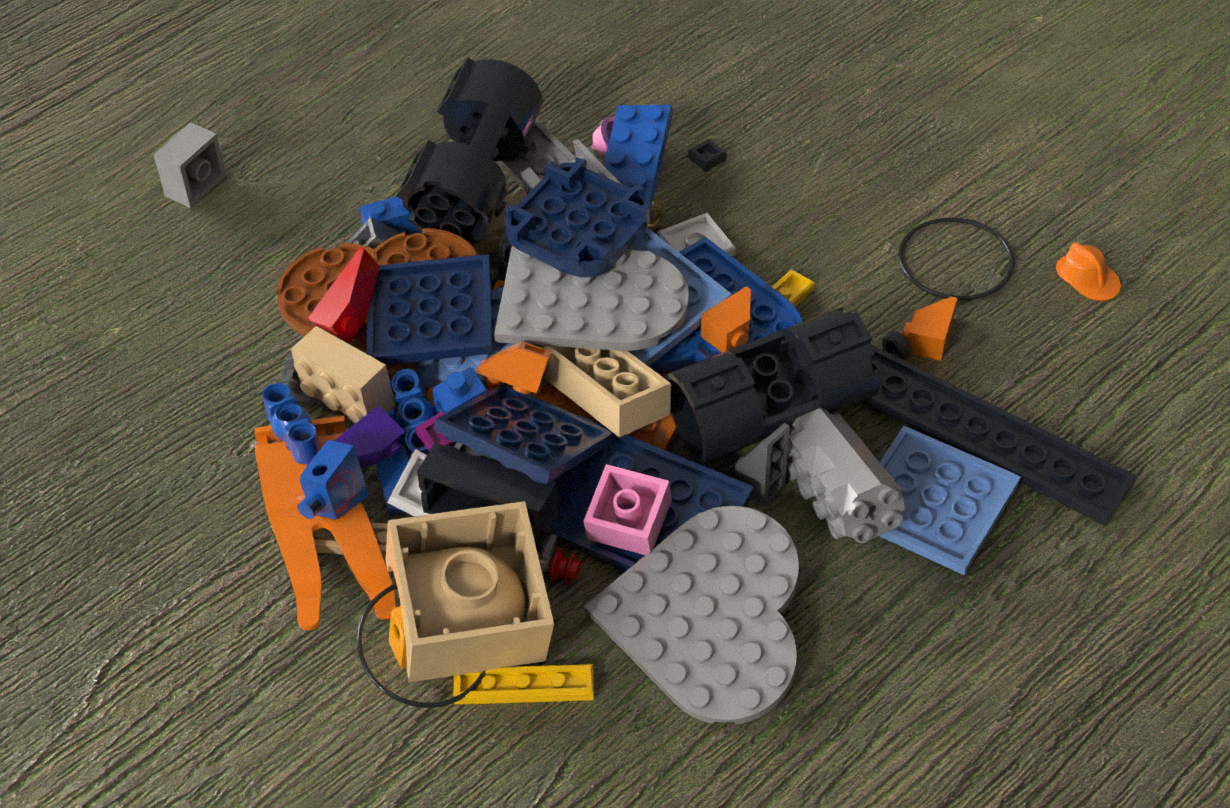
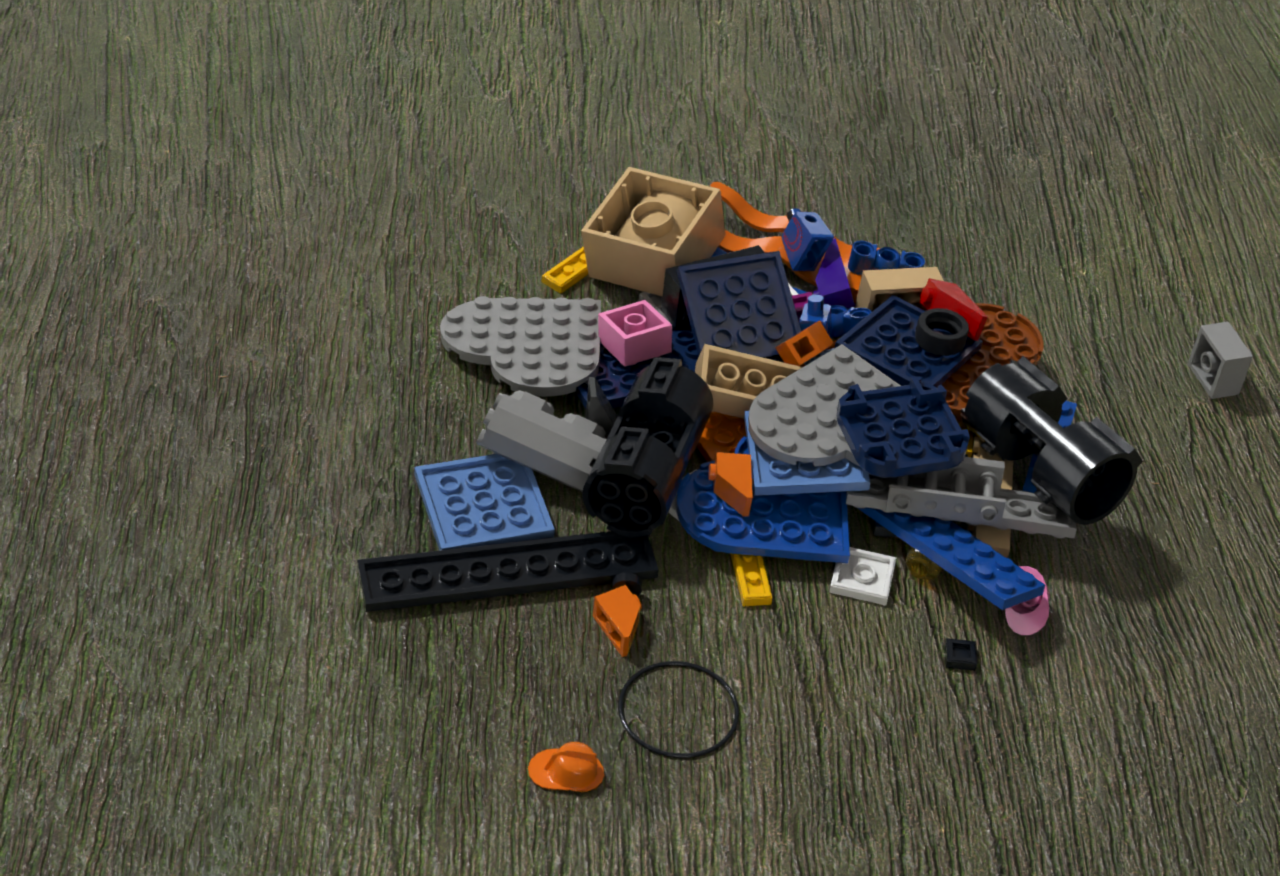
camera: 125 degrees right, 5 degrees down
(405, 297) = (935, 342): none -> black tyre

